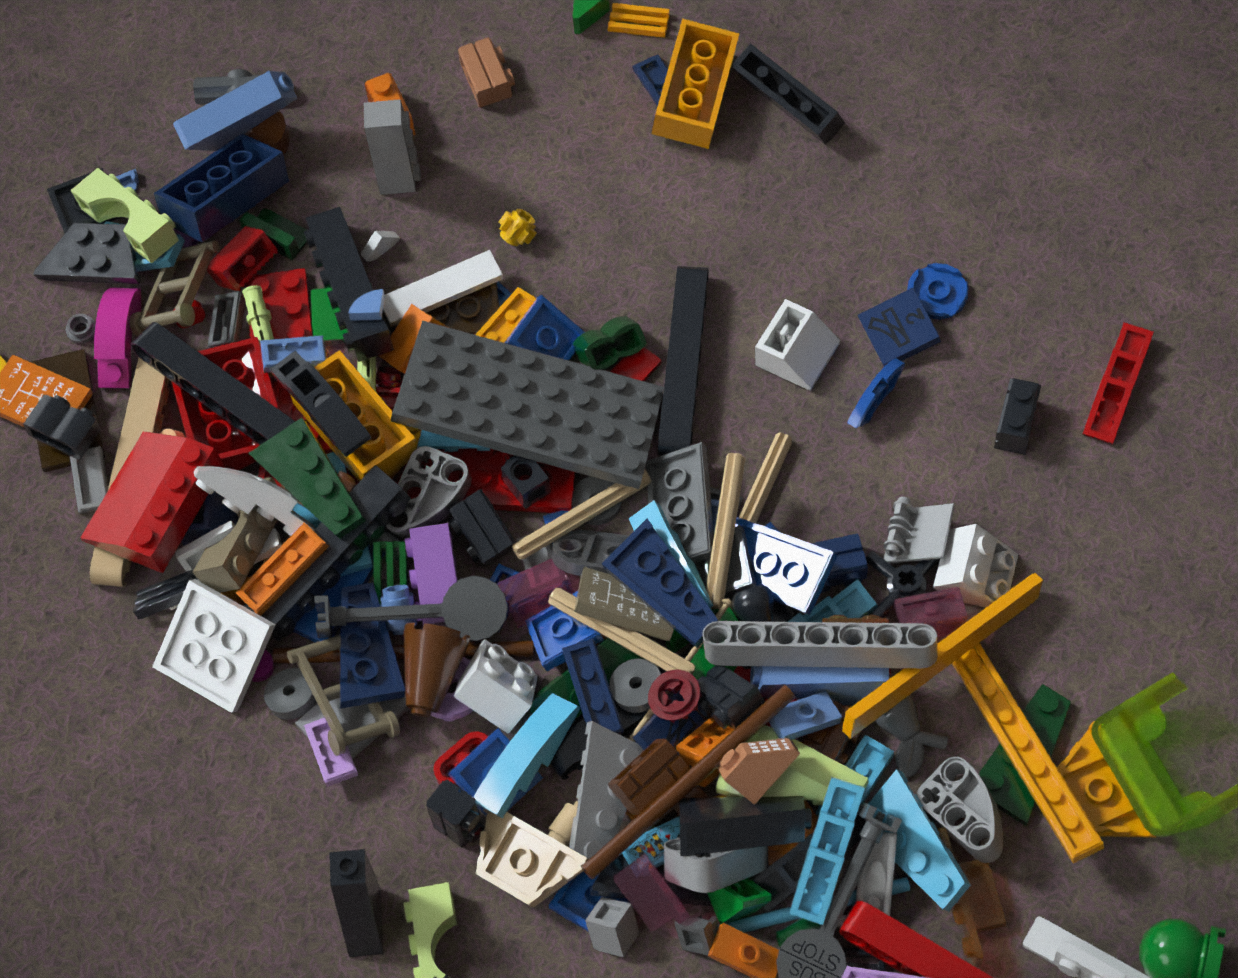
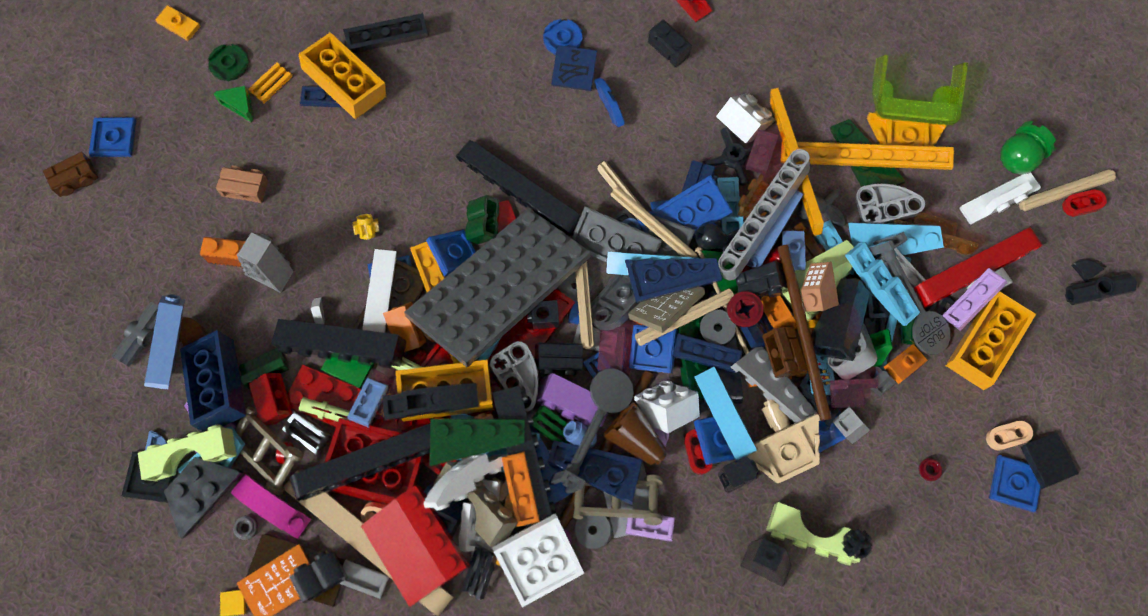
camera: 65 degrees left, 10 degrees up
(368, 306) = (374, 337): medium blue tile -> none
(796, 345) = (551, 124): white slope -> none
(917, 532) = (708, 131): light grey hinge -> none

